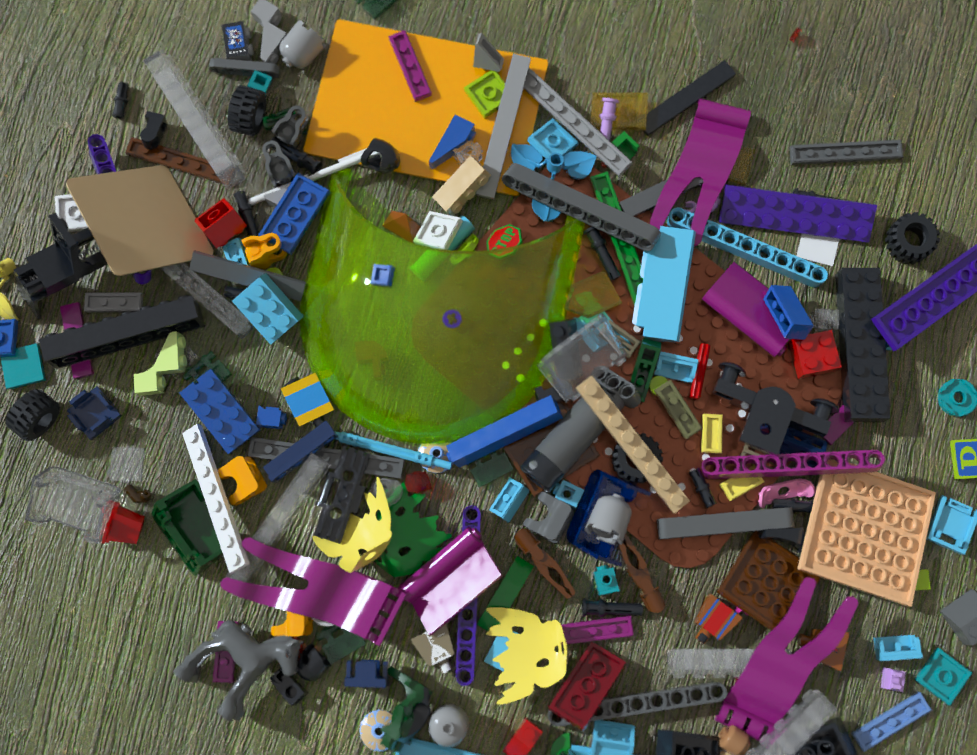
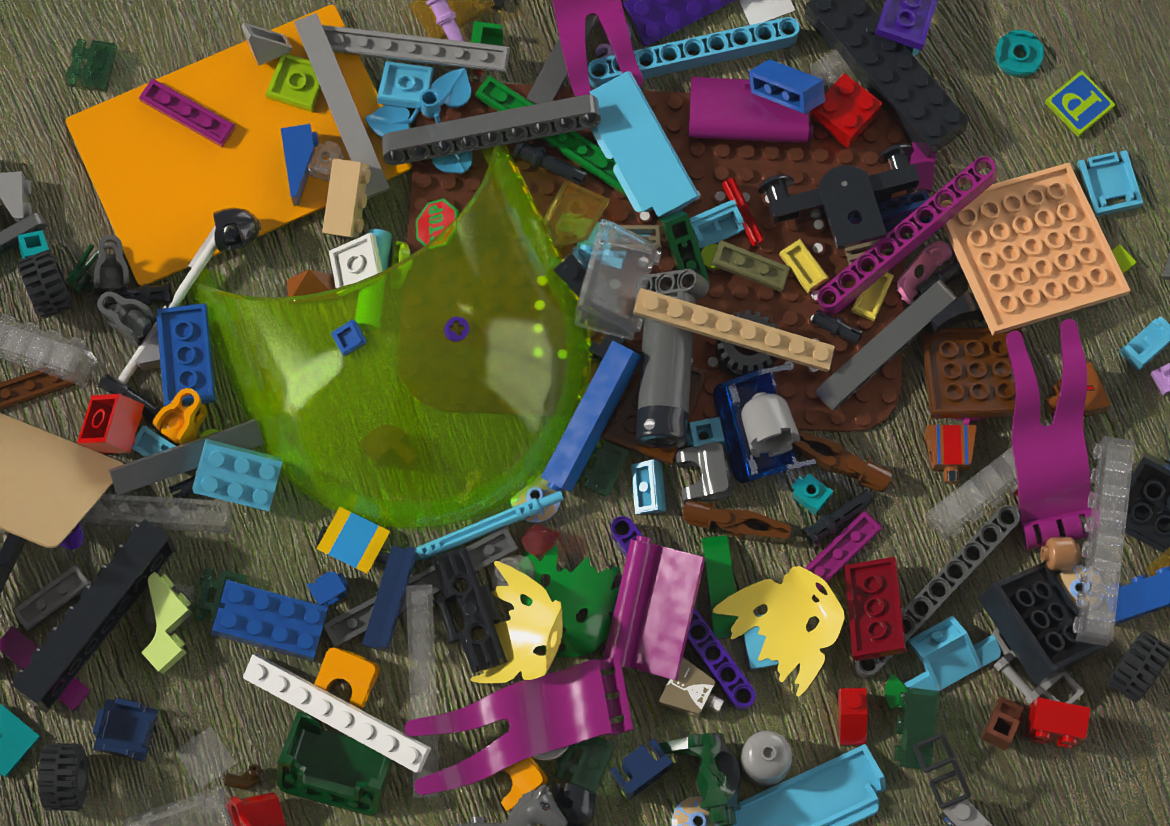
camera: 40 degrees left, 5 degrees down
(300, 46) = (50, 174): light grey cylinder -> none

